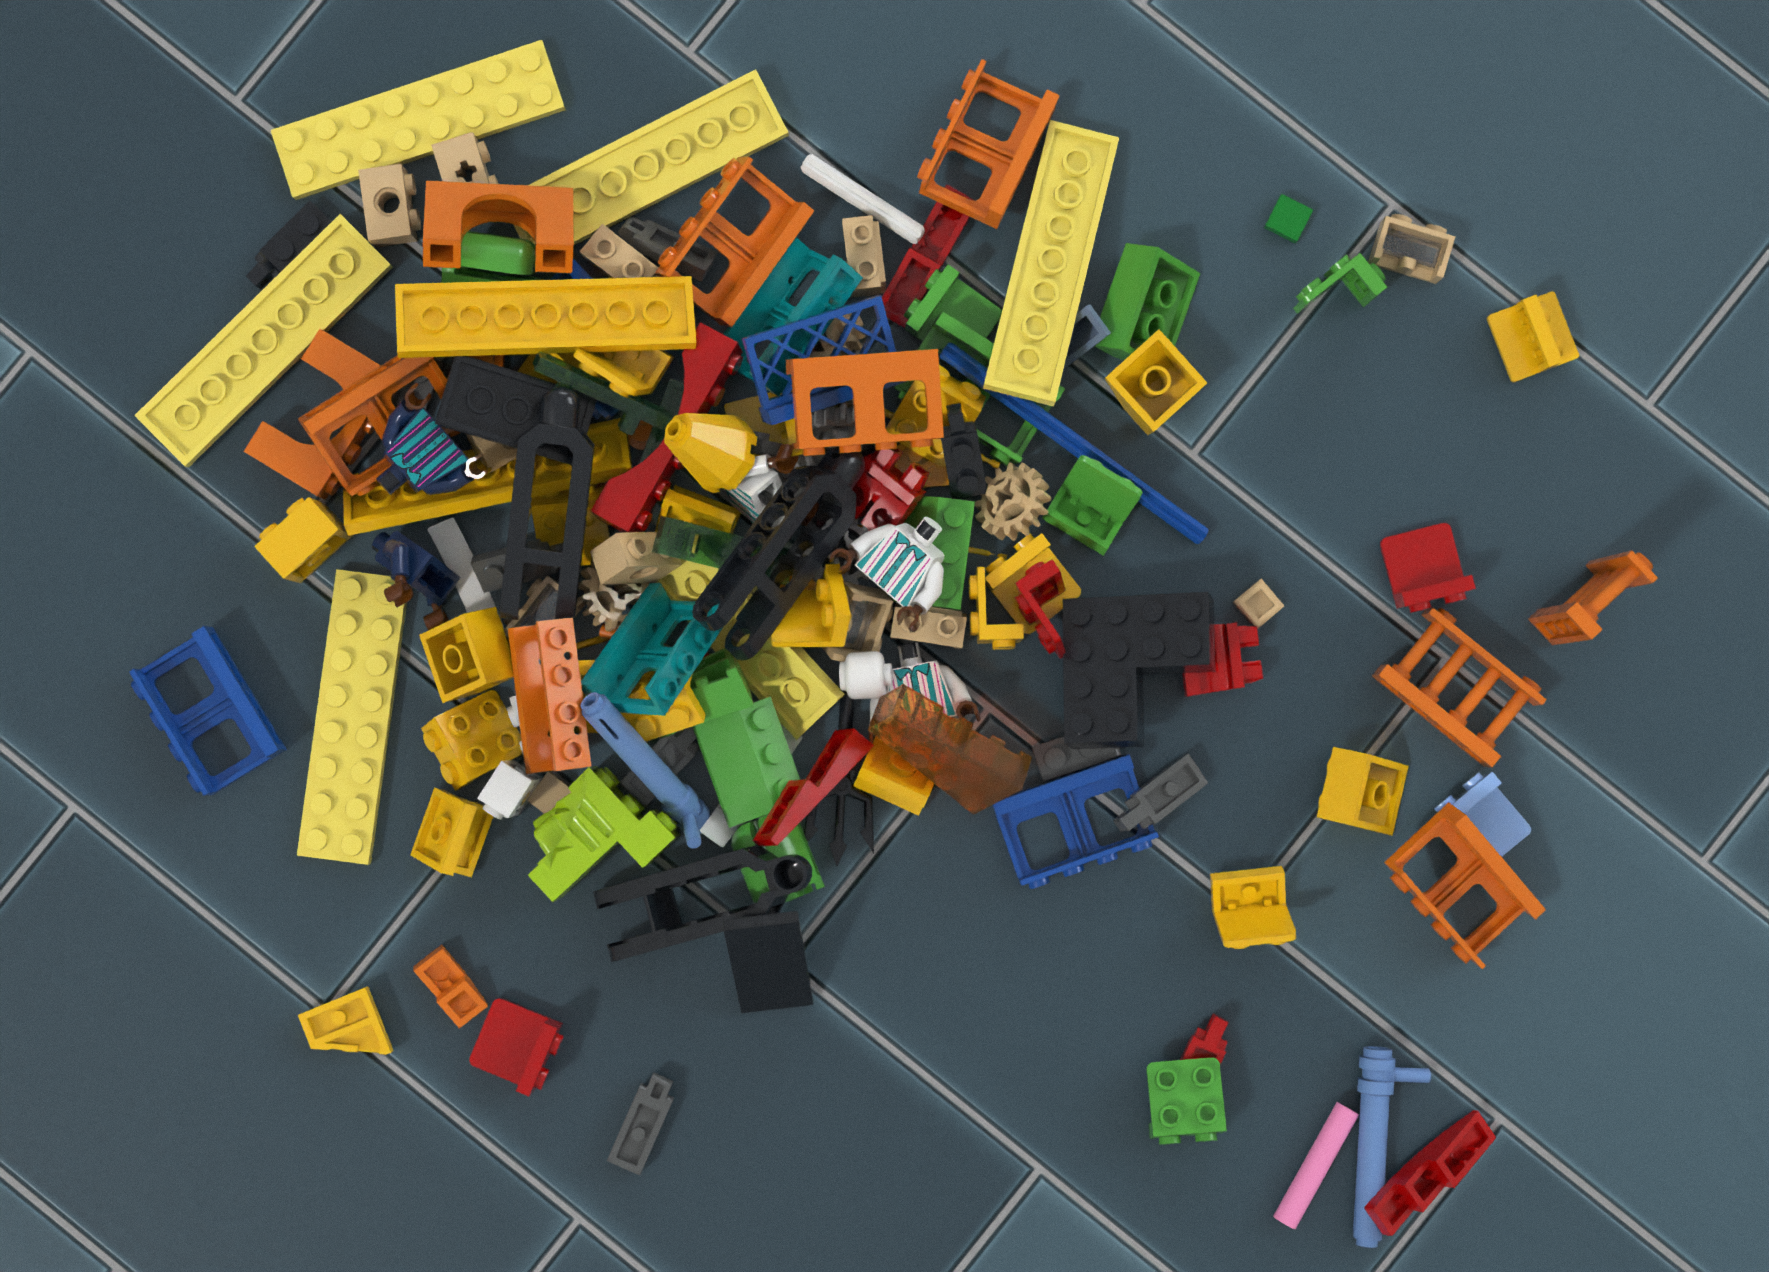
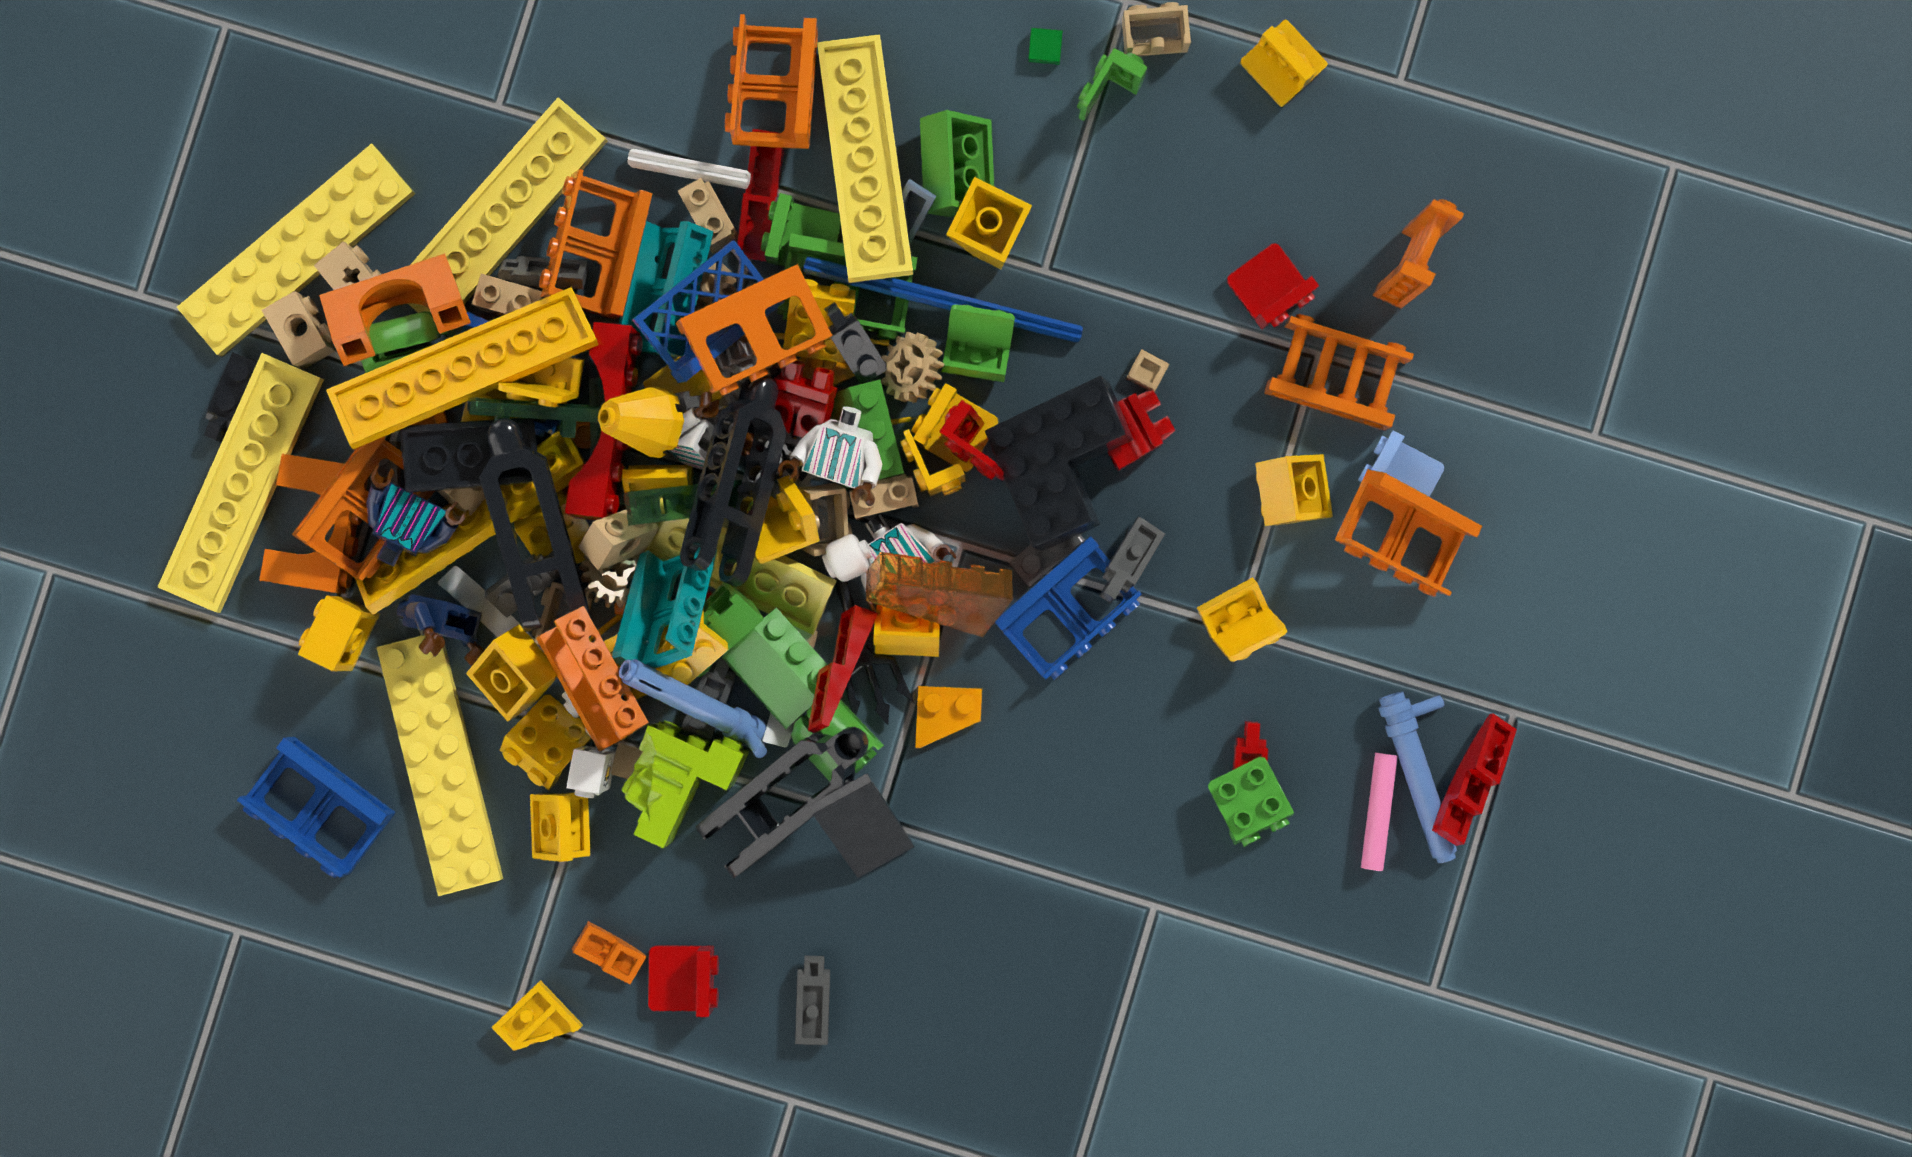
camera: 25 degrees left, 0 degrees up
(902, 876) = (945, 711): none -> light orange wing

